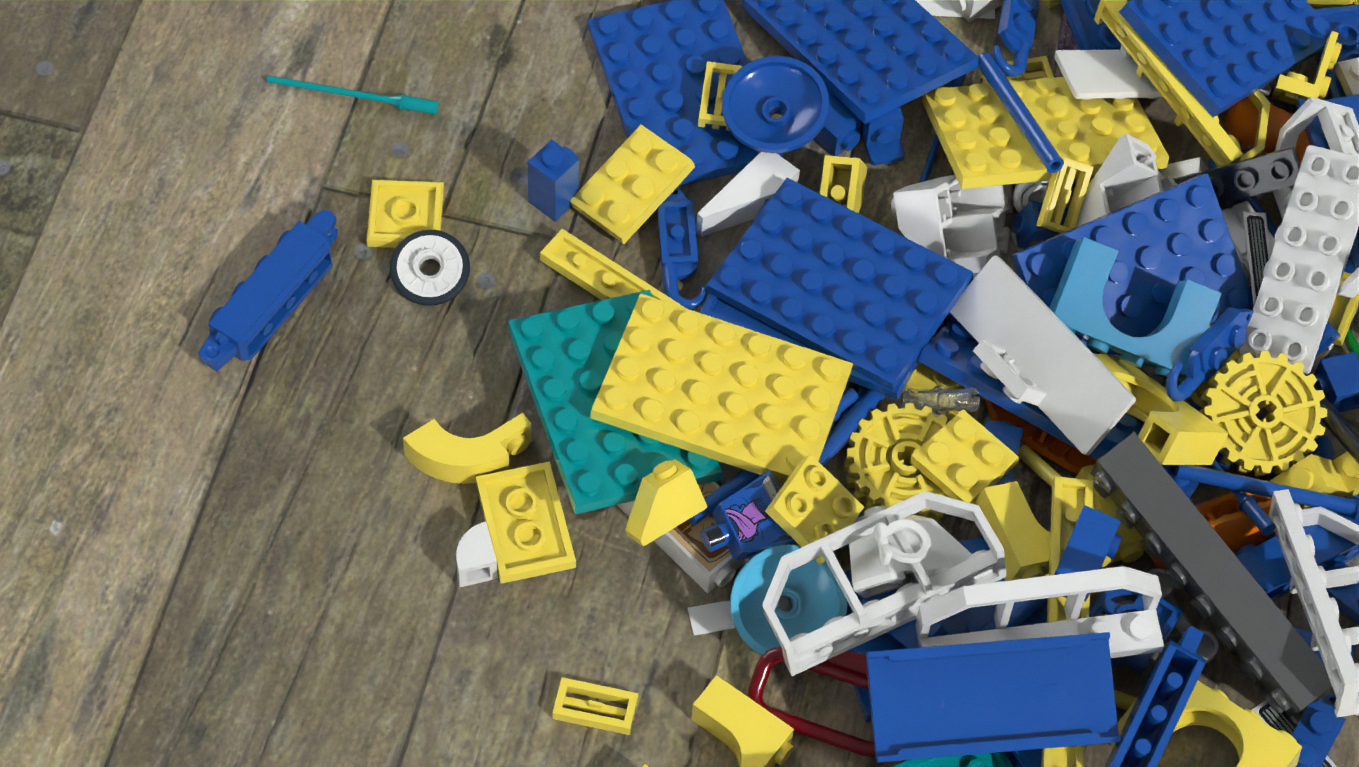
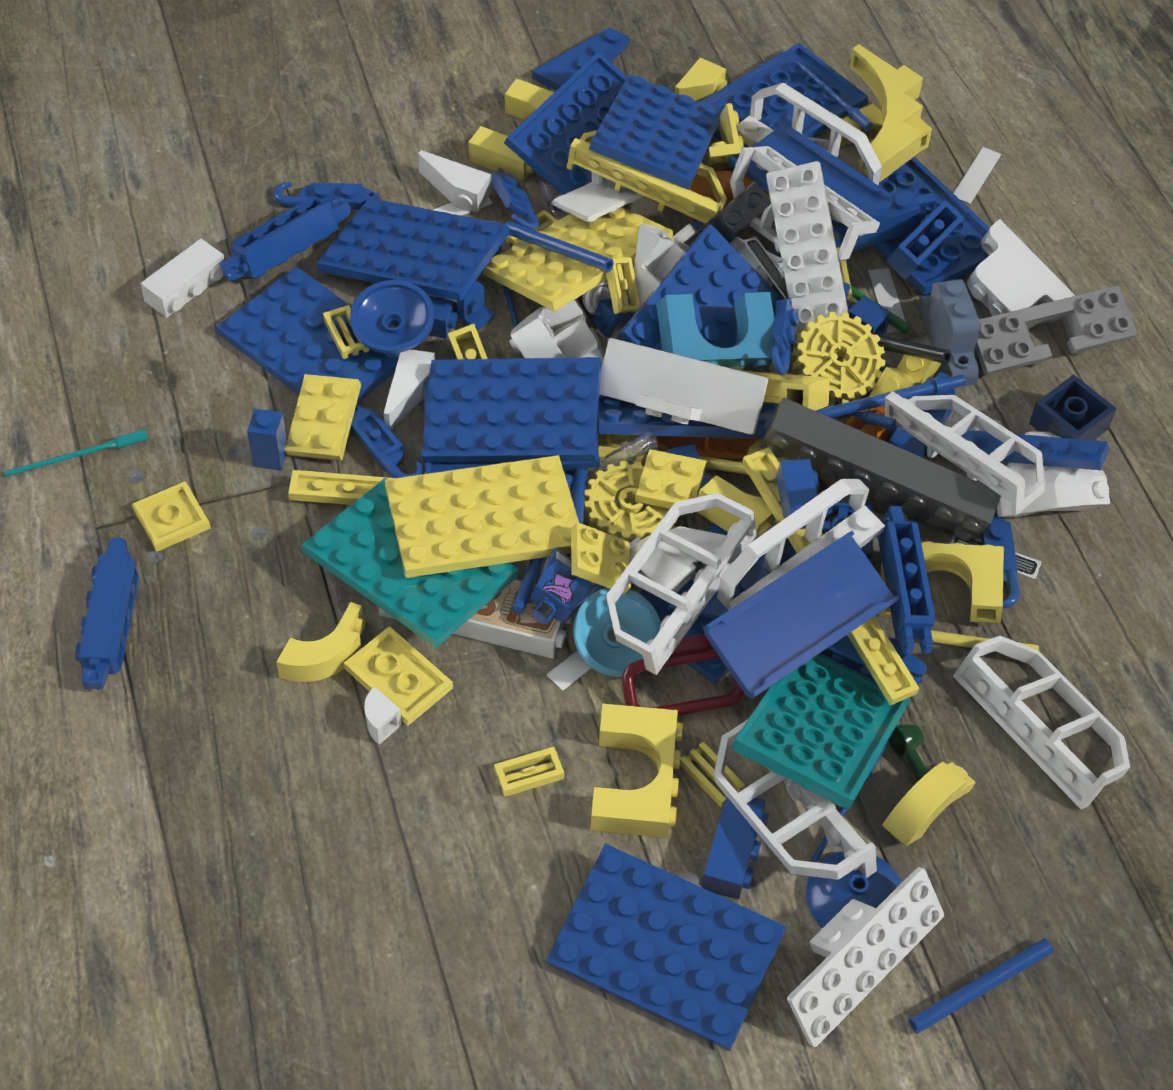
camera: 30 degrees left, 5 degrees down
(423, 288) = (208, 558): white wheel -> none
(664, 502) = (494, 606): light yellow slope -> none
(886, 552) = (679, 553): white piece -> none

